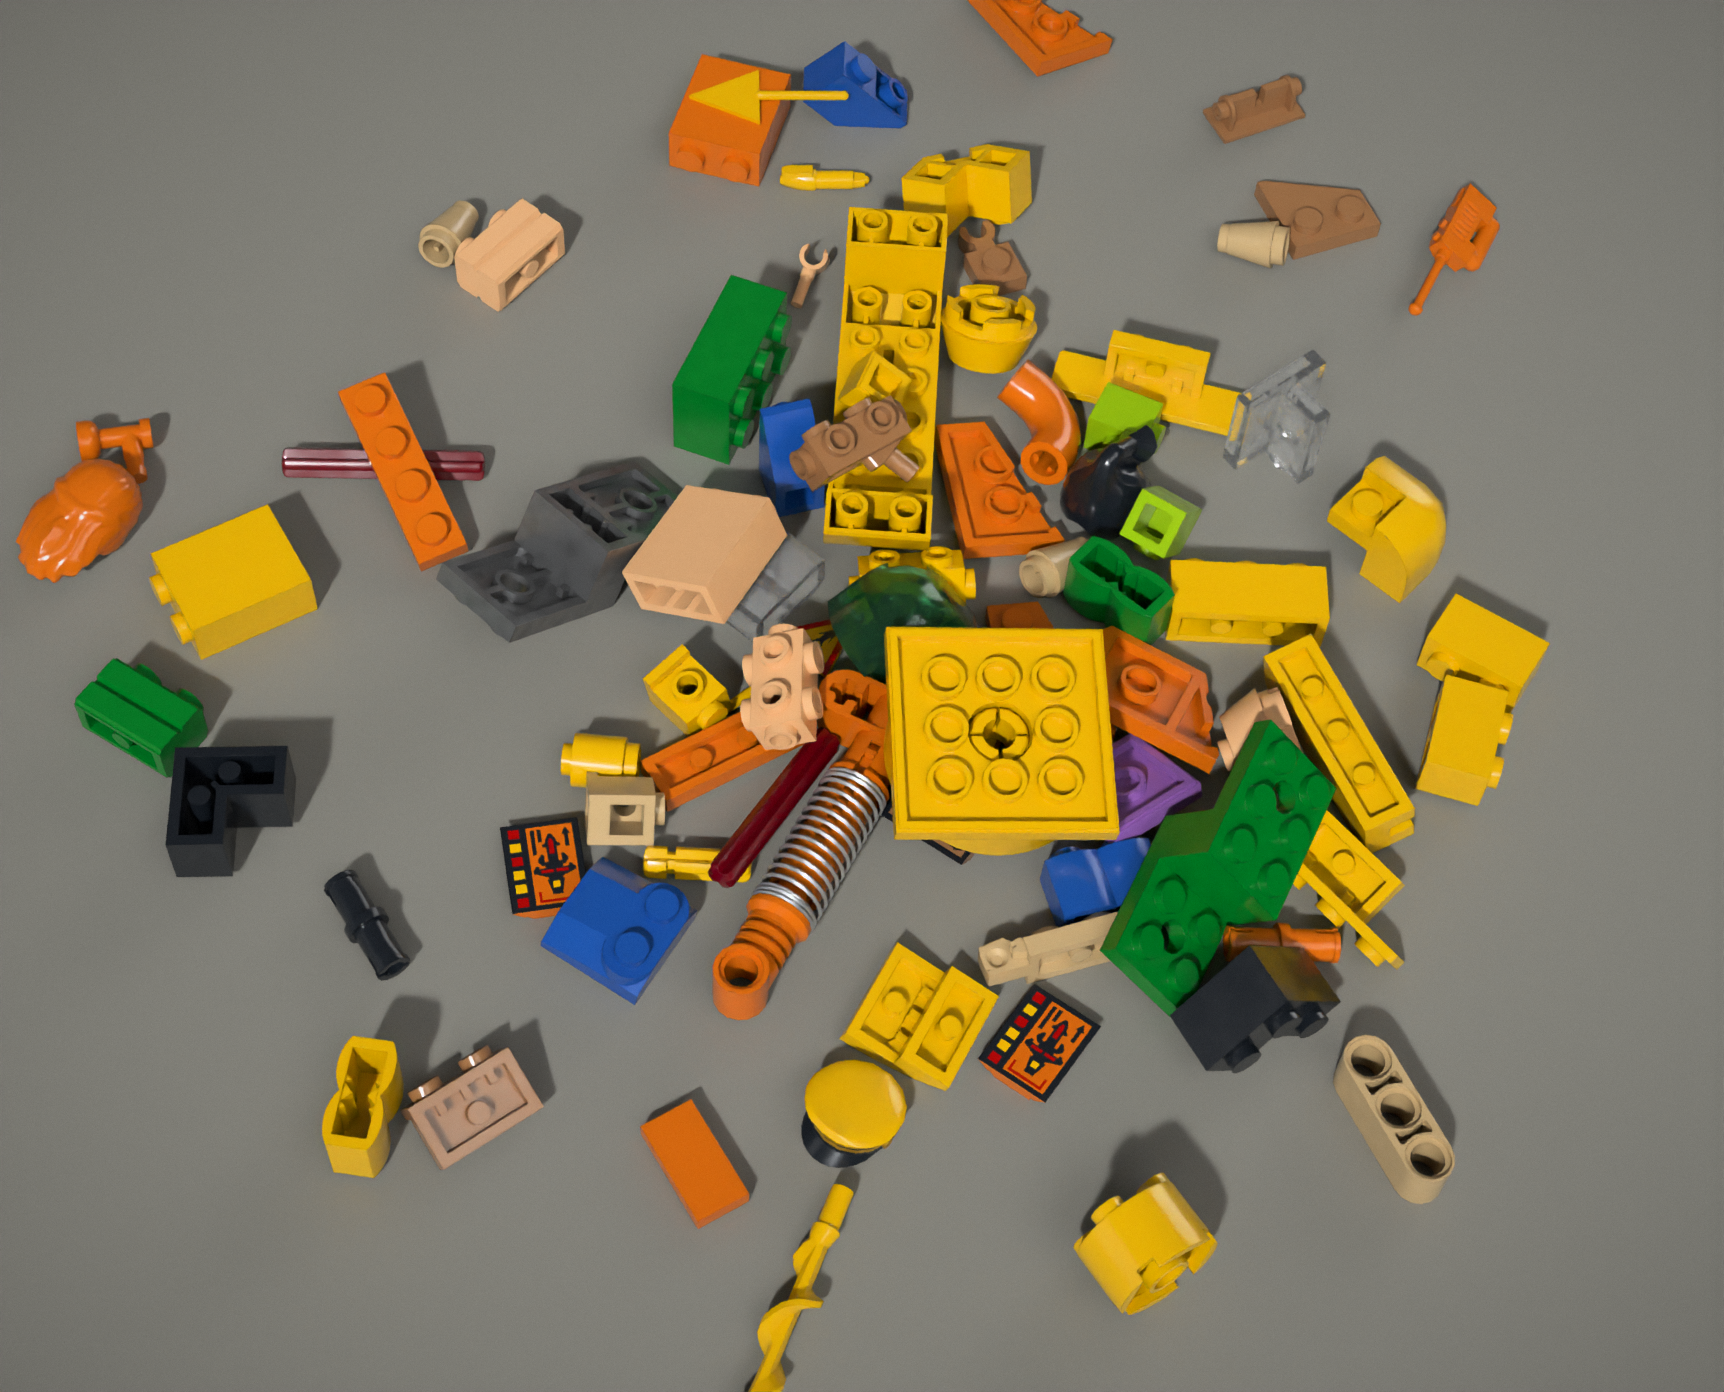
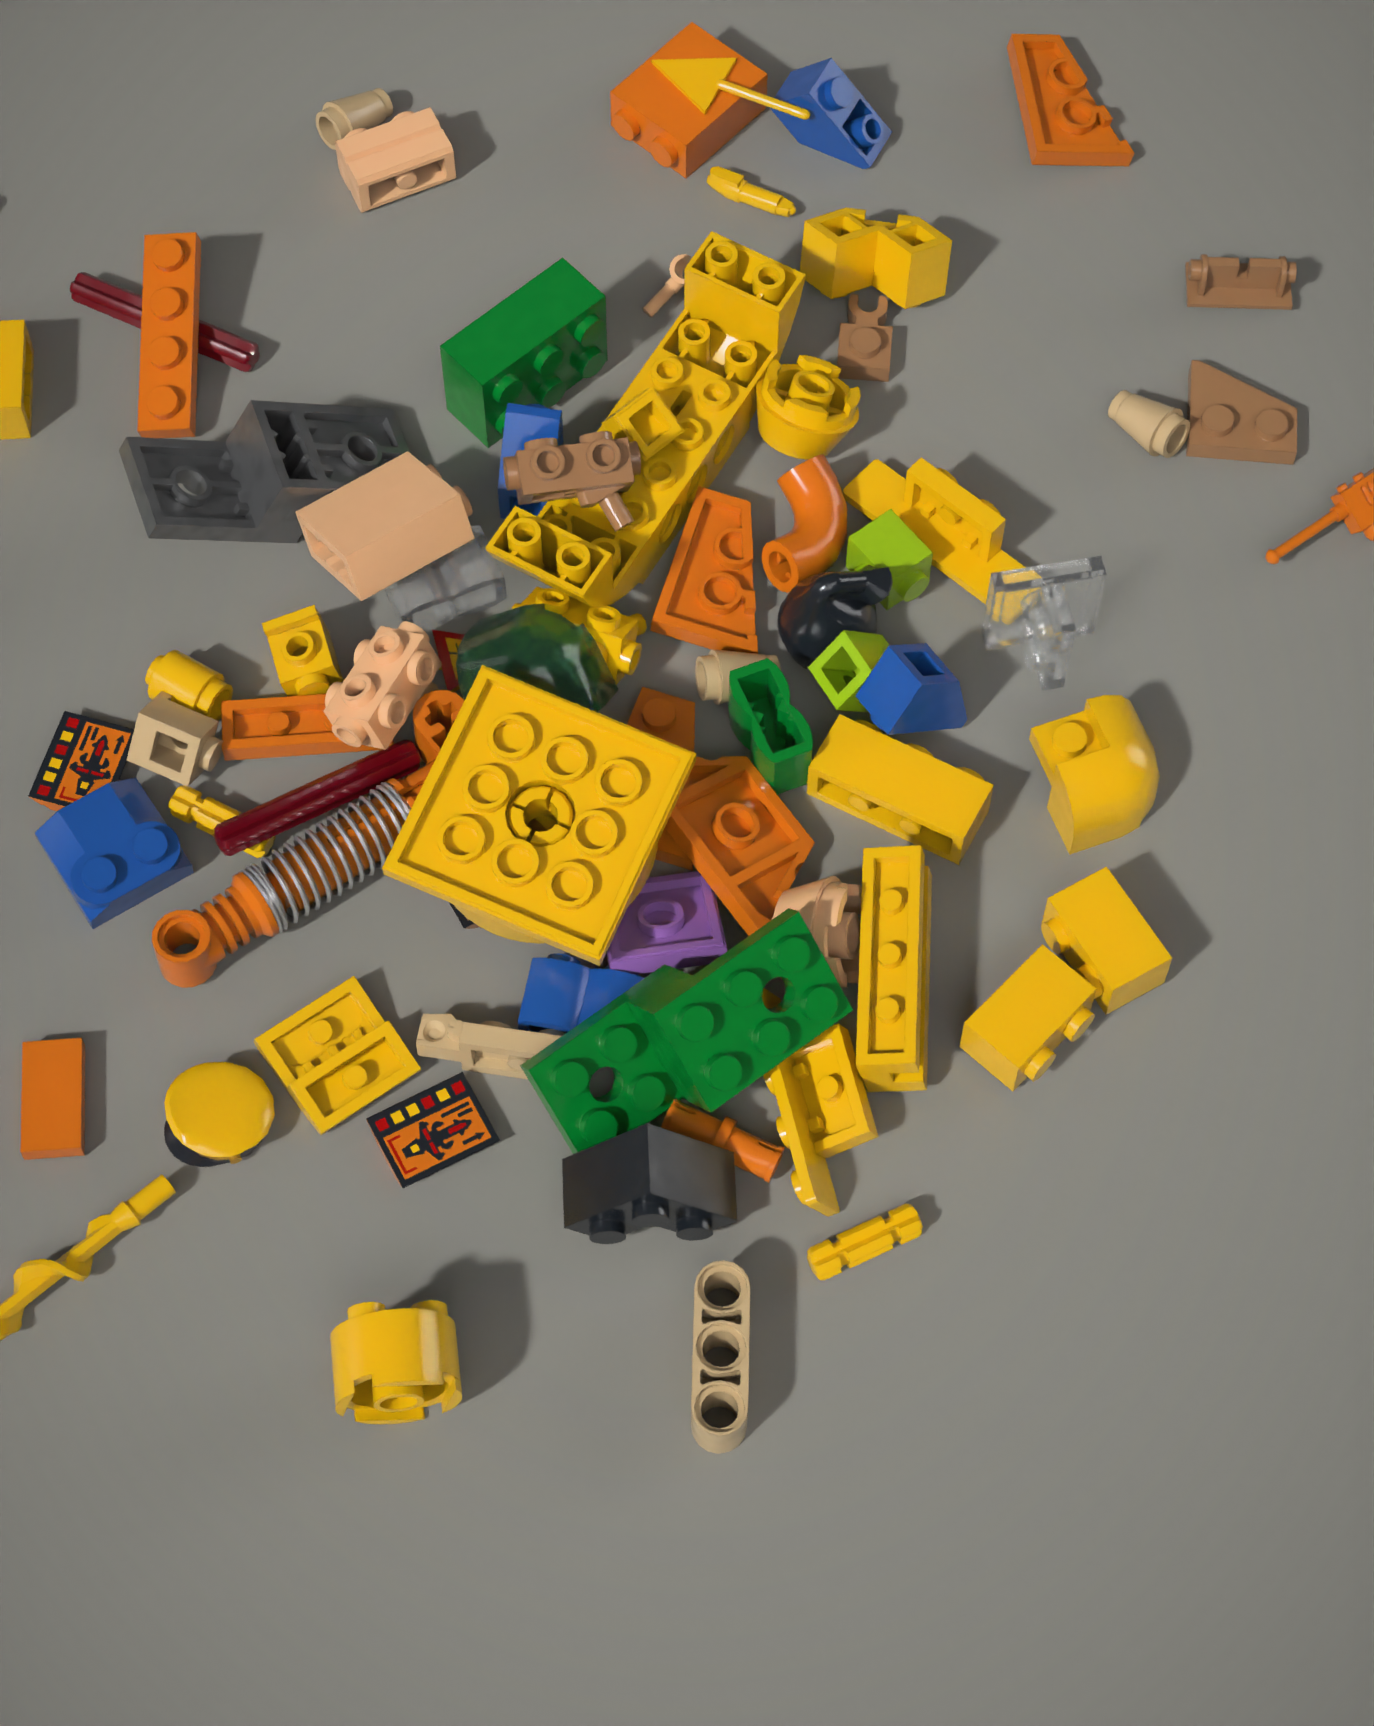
camera: 30 degrees right, 5 degrees up
(1220, 517) = (912, 692): none -> blue slope
(1441, 976) = (864, 1241): none -> yellow axle

